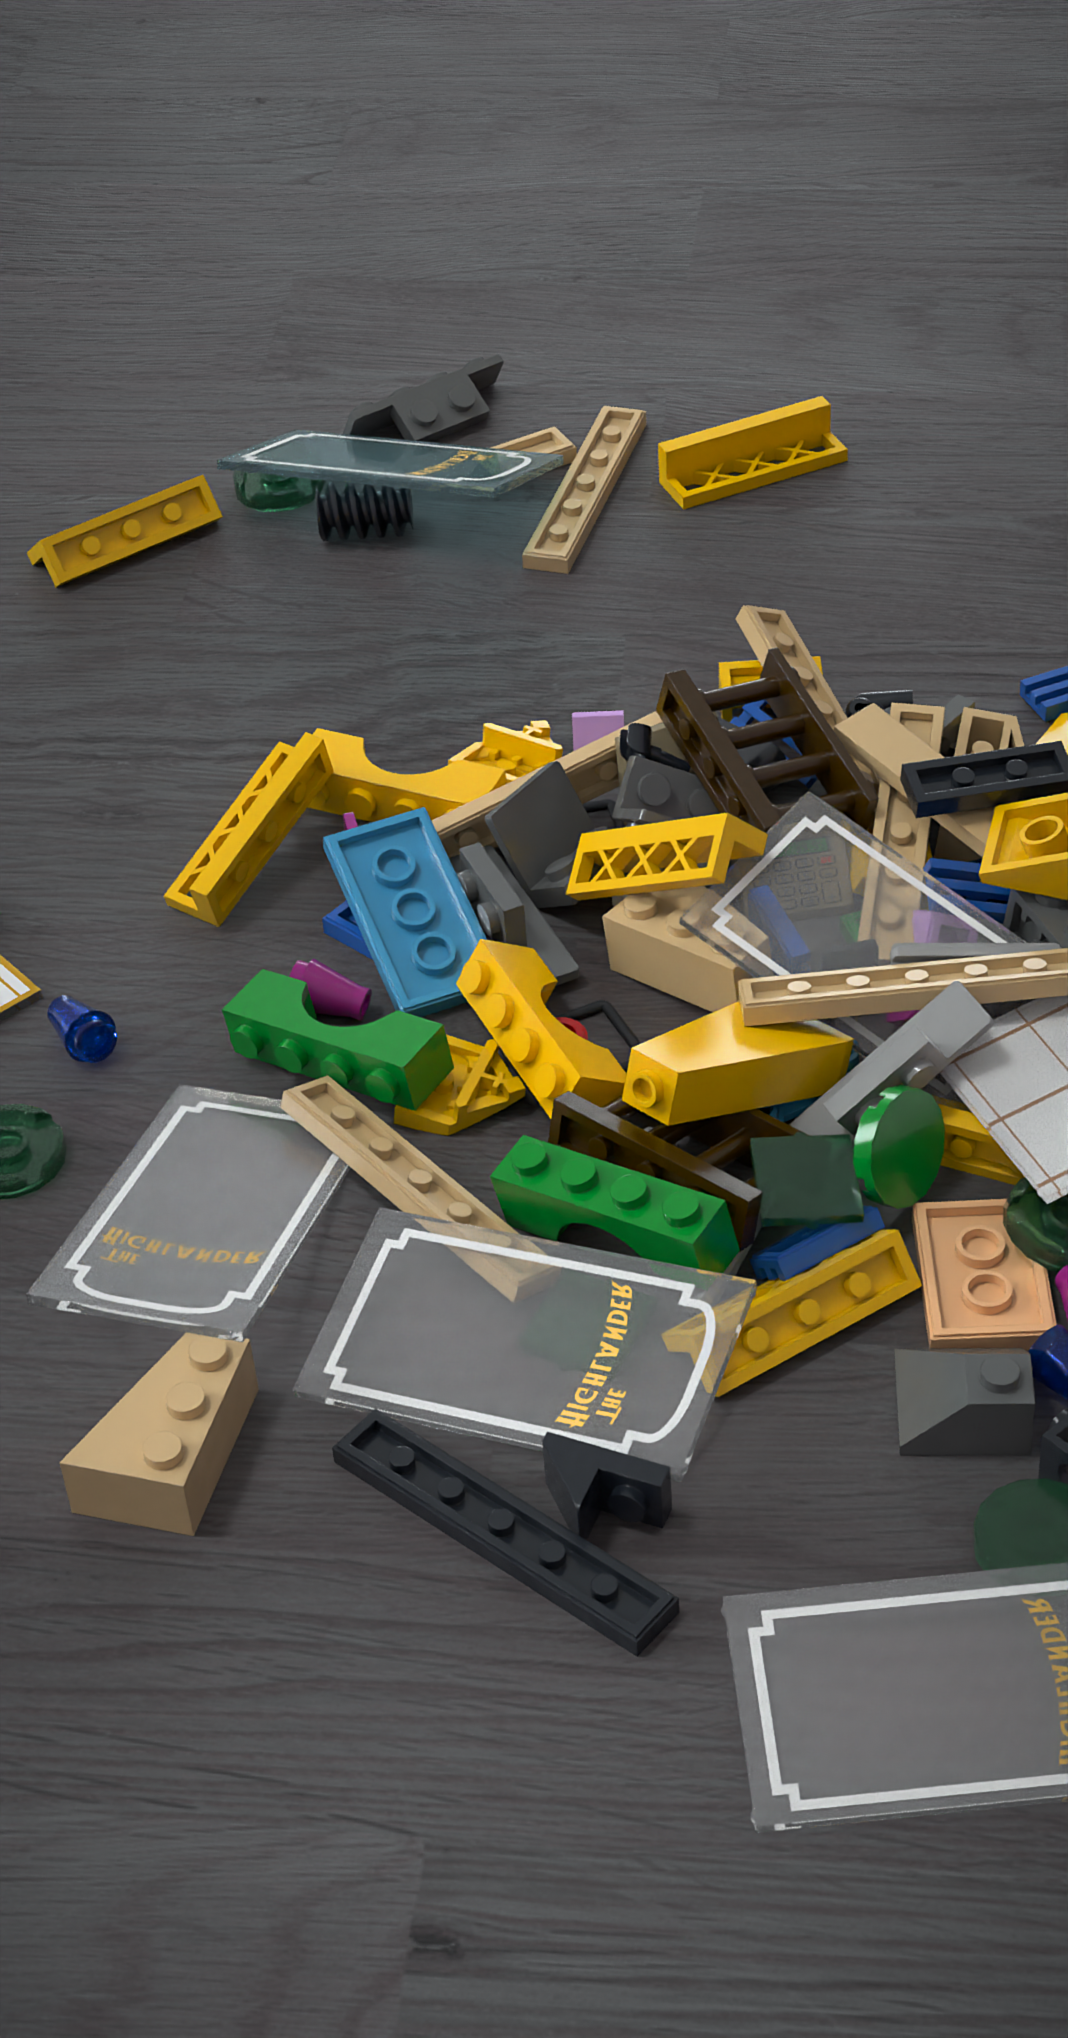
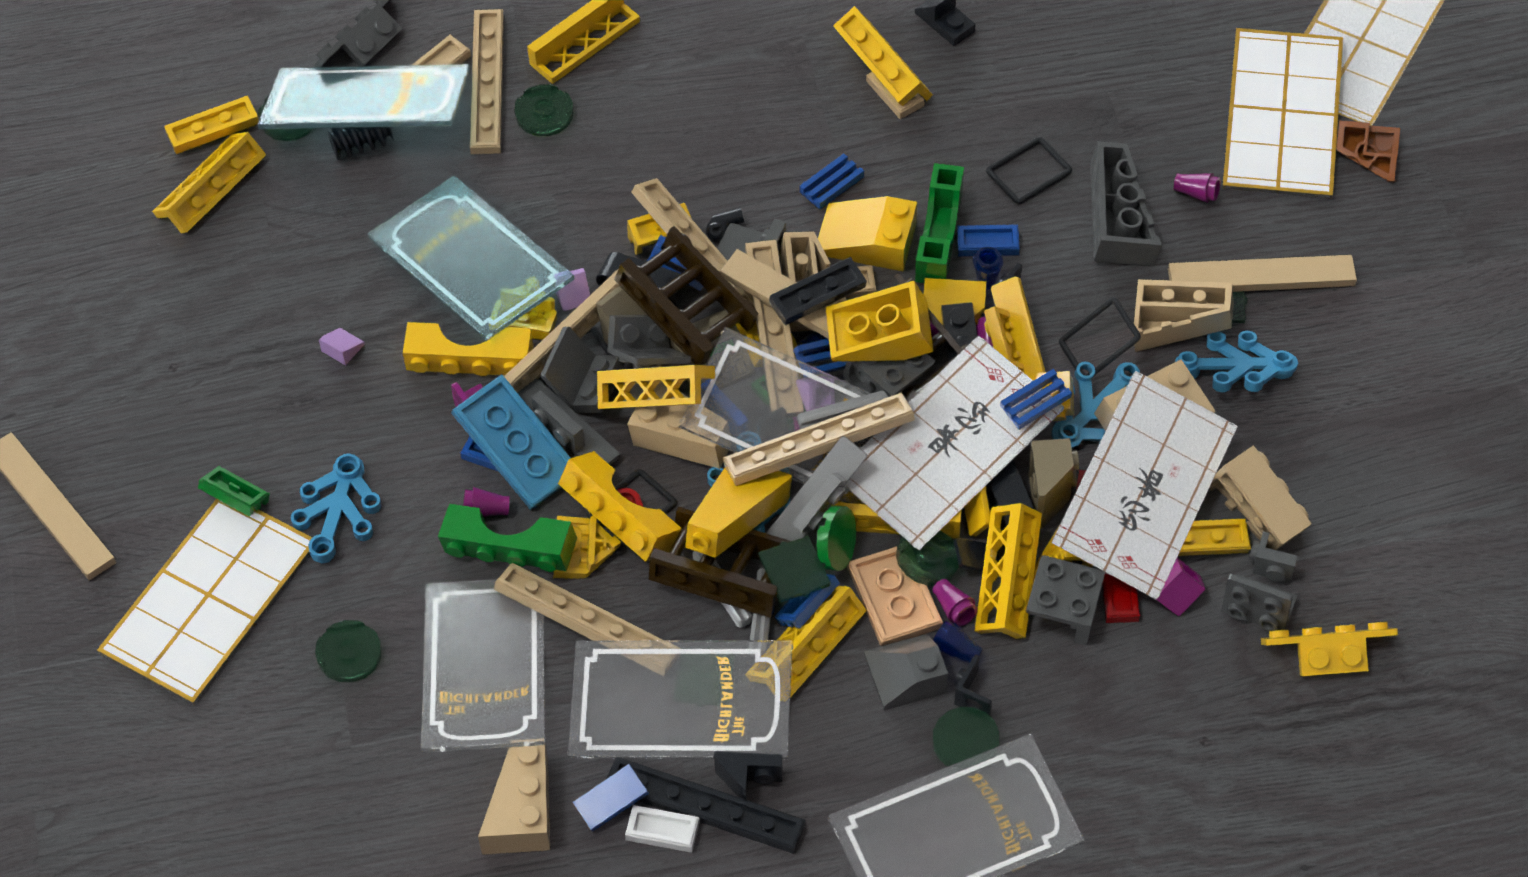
camera: 20 degrees left, 15 degrees up
(83, 1030) = (357, 563): clear blue cone -> none
(134, 907) = (335, 505): none -> dark azure plant
(159, 470) = (211, 124): none -> yellow plate
(209, 751) = (340, 345): none -> lavender slope
(251, 830) = (403, 406): yellow fence -> none
(333, 1469) = (610, 797): none -> tile
(408, 1549) = (662, 828): none -> white tile
(459, 677) = (471, 257): none -> clear light blue piece
(552, 1186) = (668, 605): green arch -> none
(637, 742) = (612, 306): black hand -> none
(655, 533) = (543, 110): none -> clear green tile

